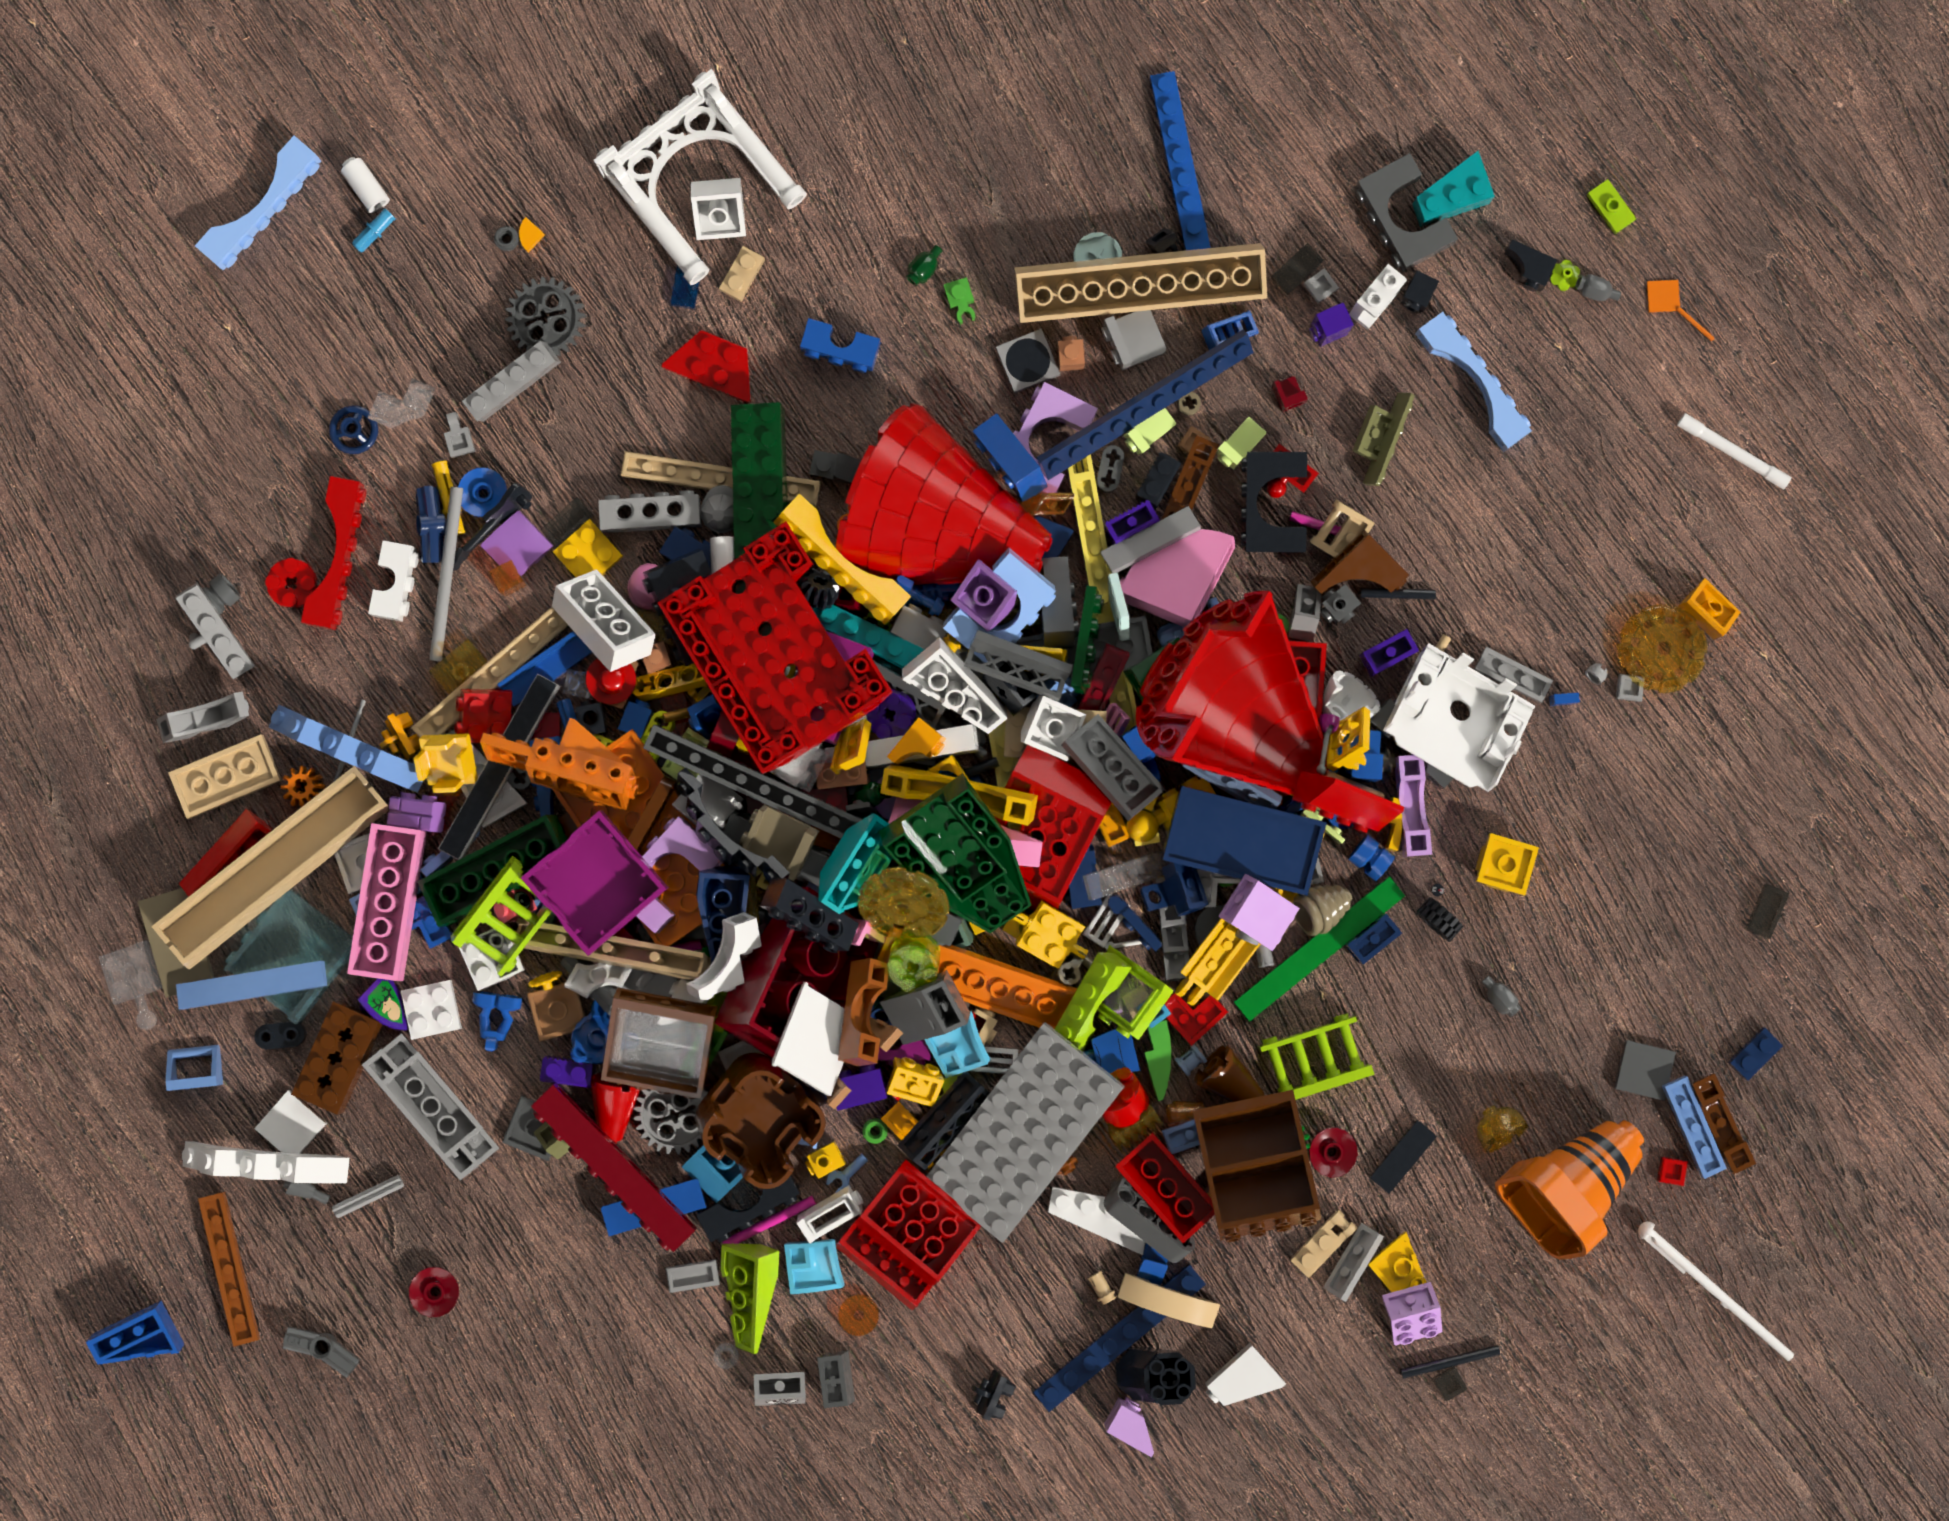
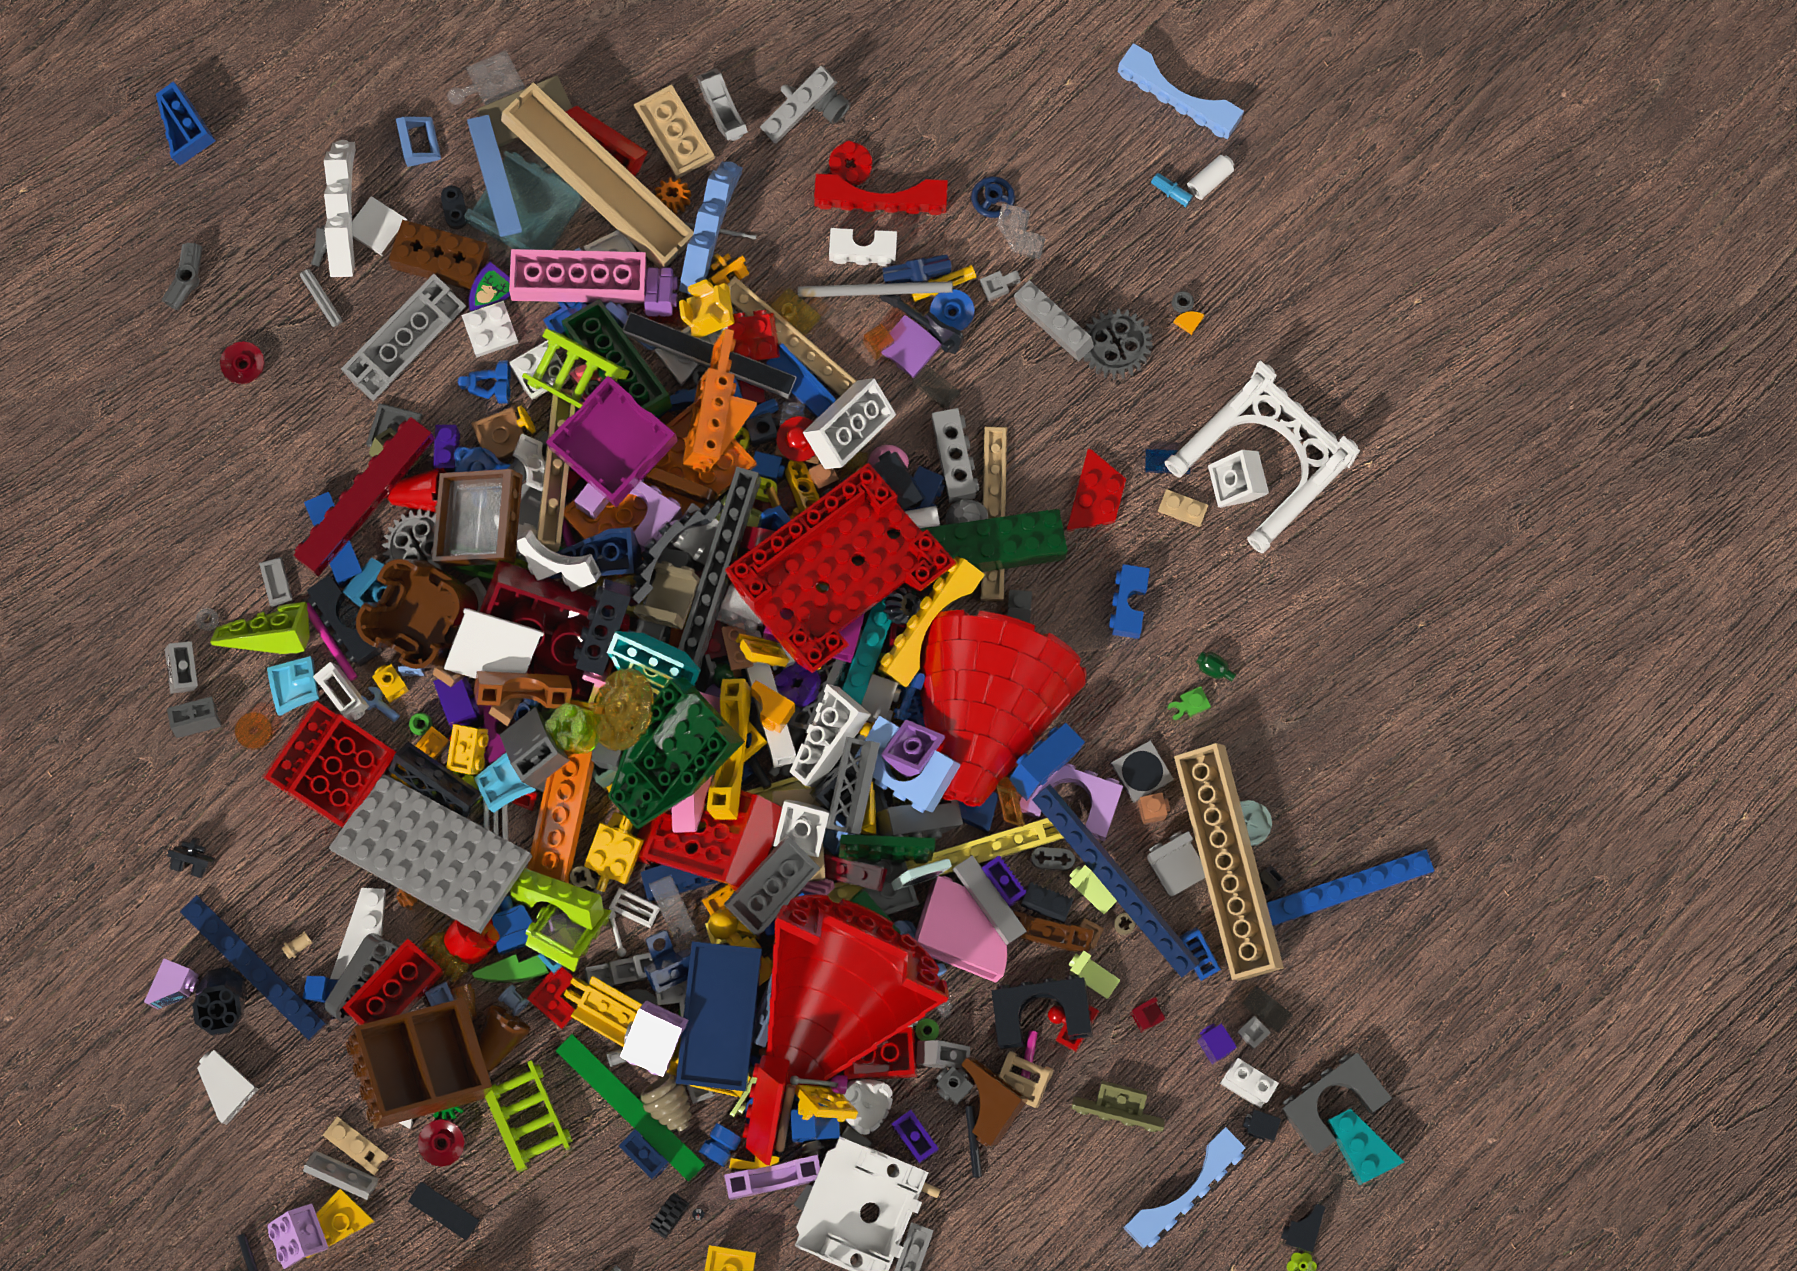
camera: 85 degrees right, 10 degrees down
(229, 1269) = (247, 191): dark orange plate -> none
(587, 551) = (912, 408): yellow plate -> none
(987, 1033) = (520, 811): tan bracket -> none
(1133, 921) = (635, 930): dark blue hinge -> none
(1168, 1301) = (288, 1007): tan slope -> none

